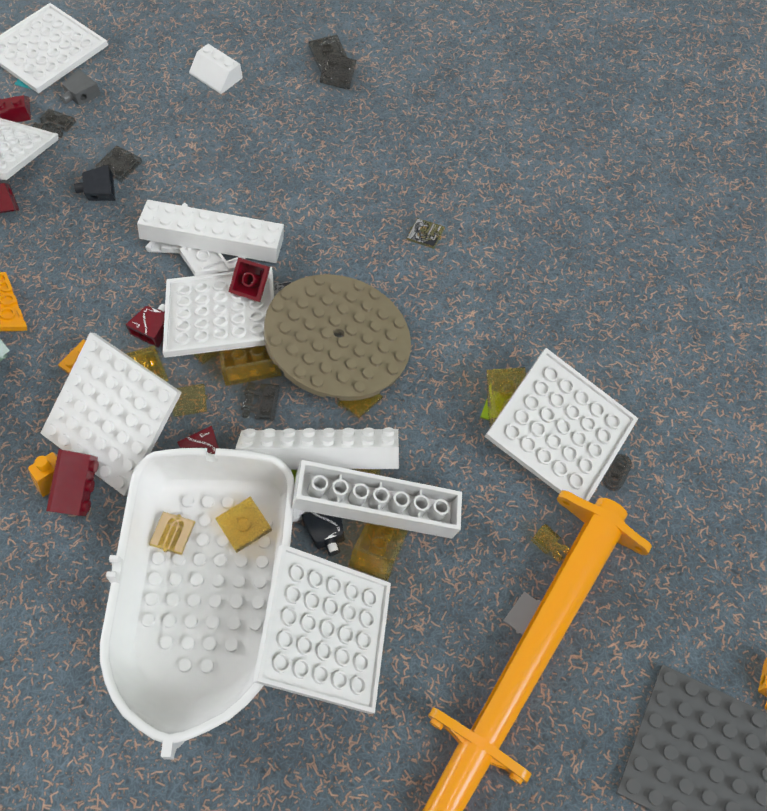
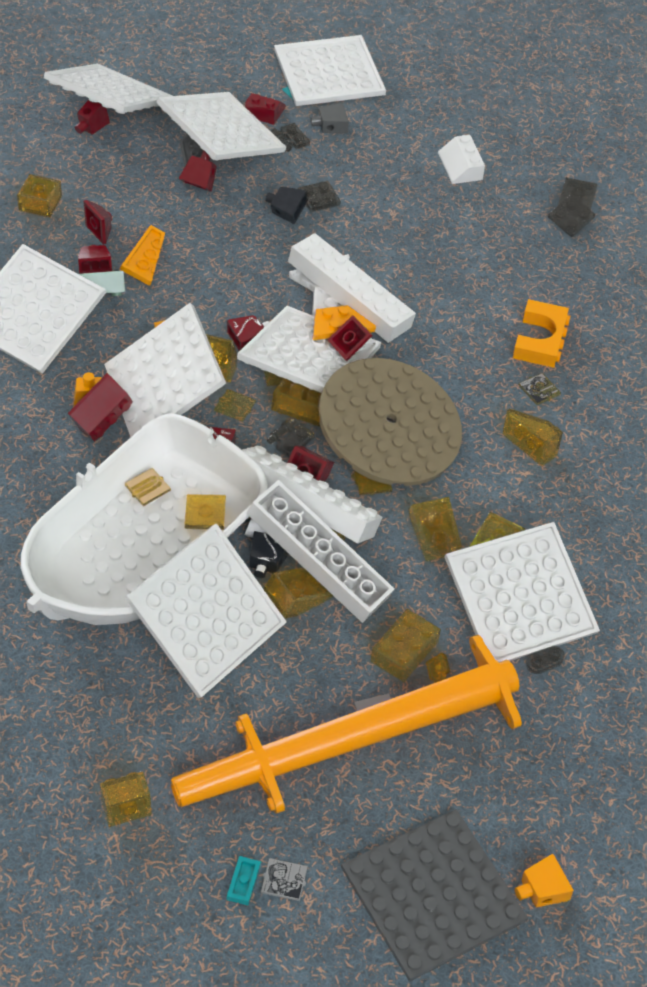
camera: 30 degrees right, 10 degrees down
(220, 268) = (331, 319): none -> light orange wing
(298, 416) = (311, 462): none -> dark red slope
(395, 167) = (546, 350): none -> light orange arch
(445, 410) = (435, 528): none -> clear yellow slope
(458, 278) = (533, 435): none -> clear yellow slope
(506, 537) = (405, 645): none -> clear yellow brick

